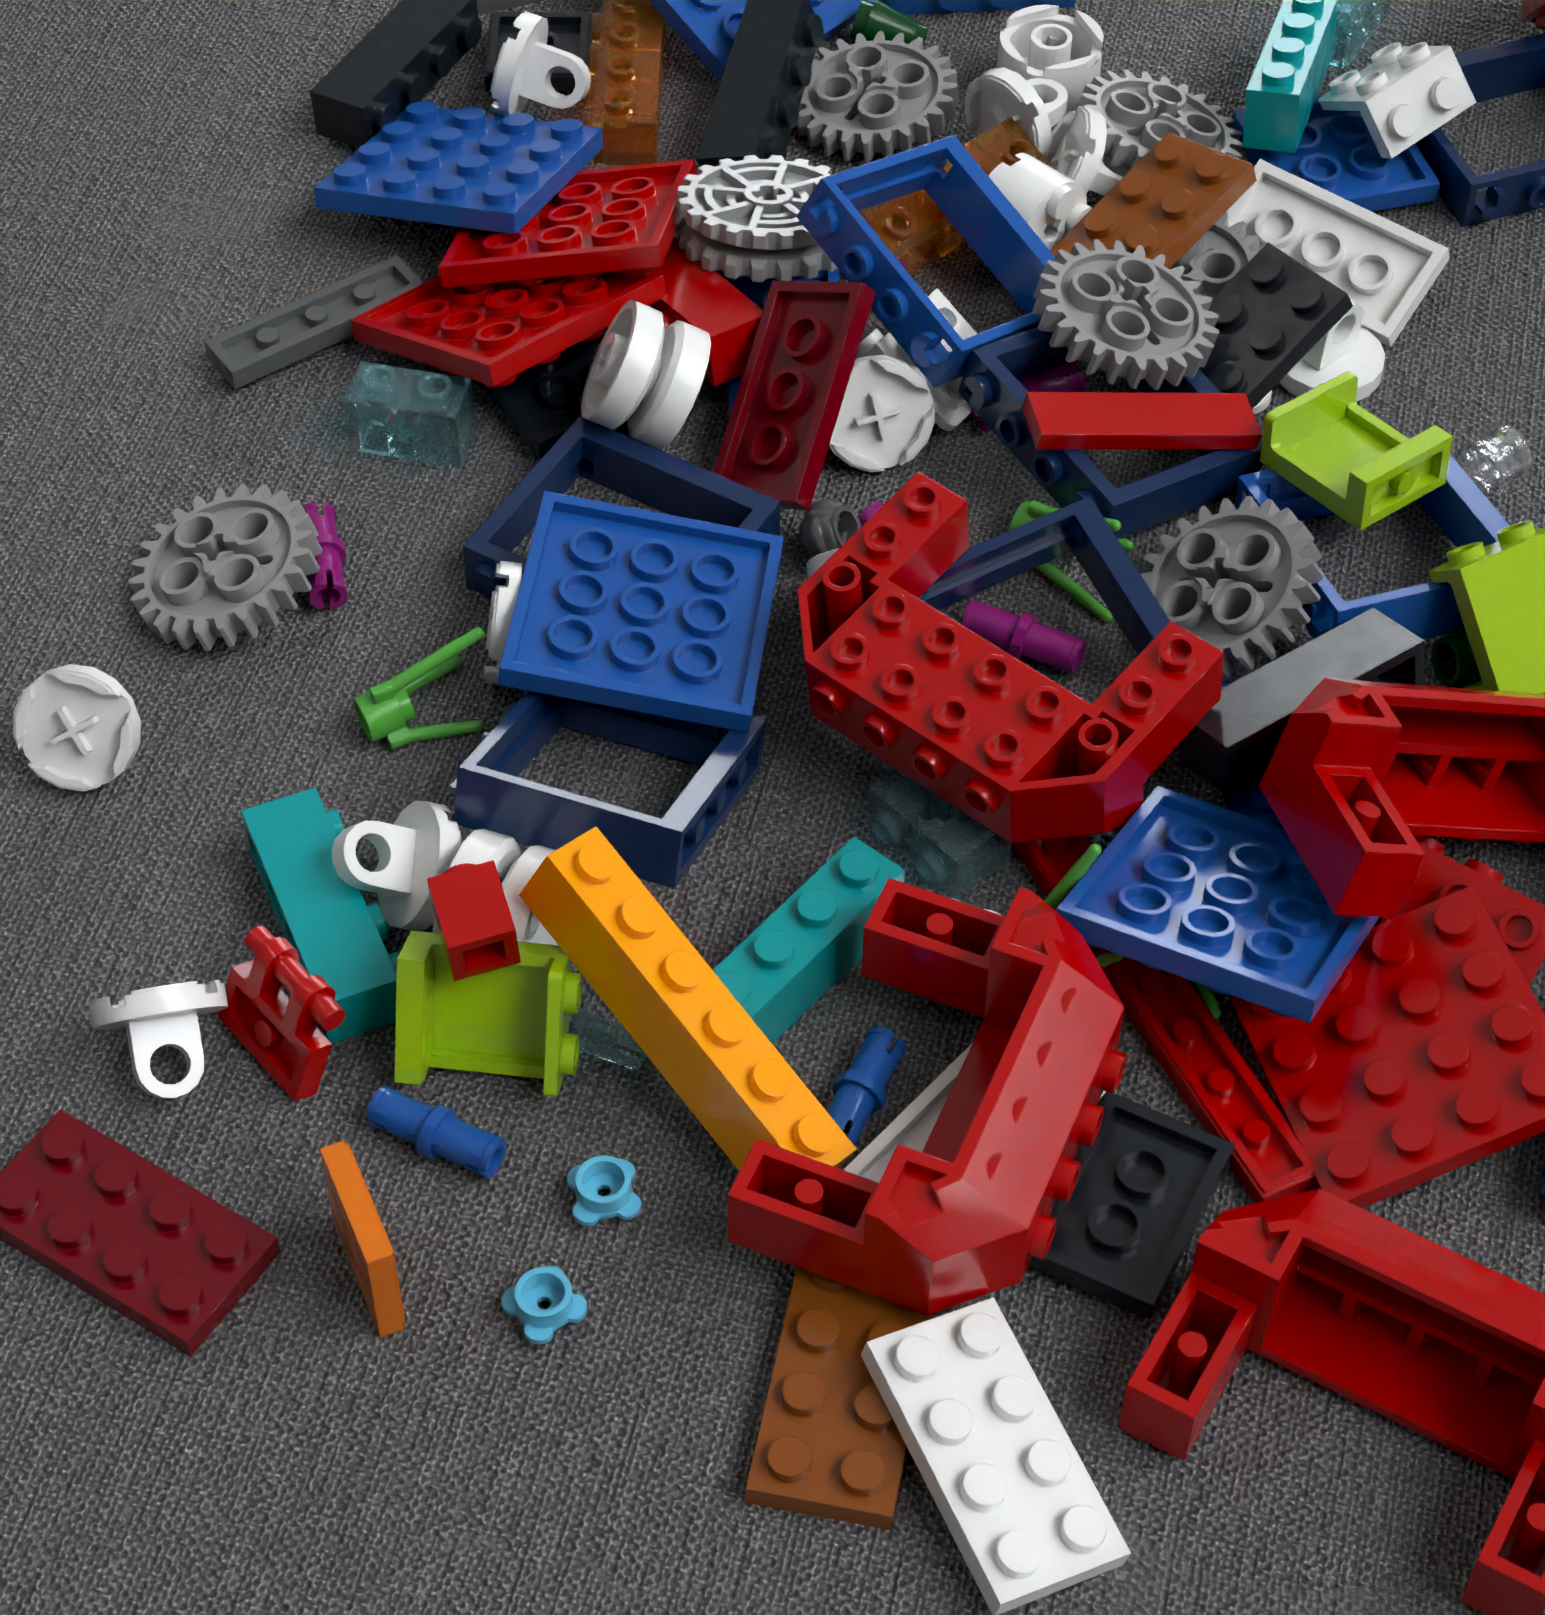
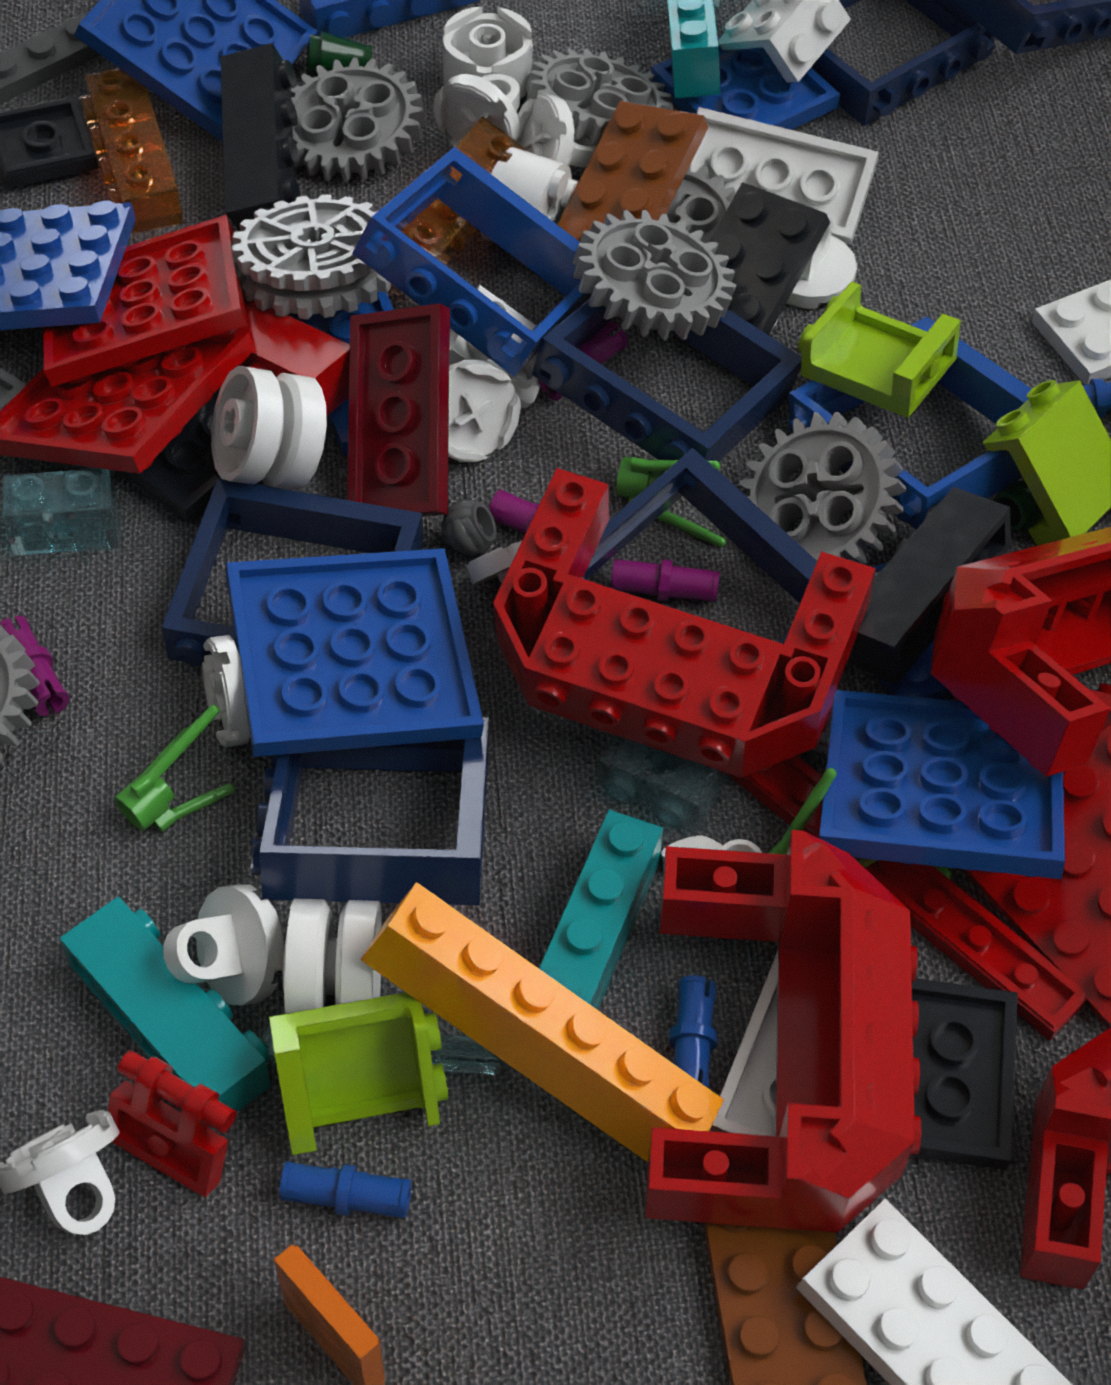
camera: 20 degrees left, 5 degrees up
(473, 919) = (331, 996): red brick -> none
(526, 70) = (48, 163): white tile -> none
(542, 1285) = (499, 1304): medium azure plate -> none
(599, 1174) = (512, 1181): medium azure plate -> none
(1140, 420) = (700, 367): red tile -> none
(1495, 459) = (980, 321): clear wheel -> none

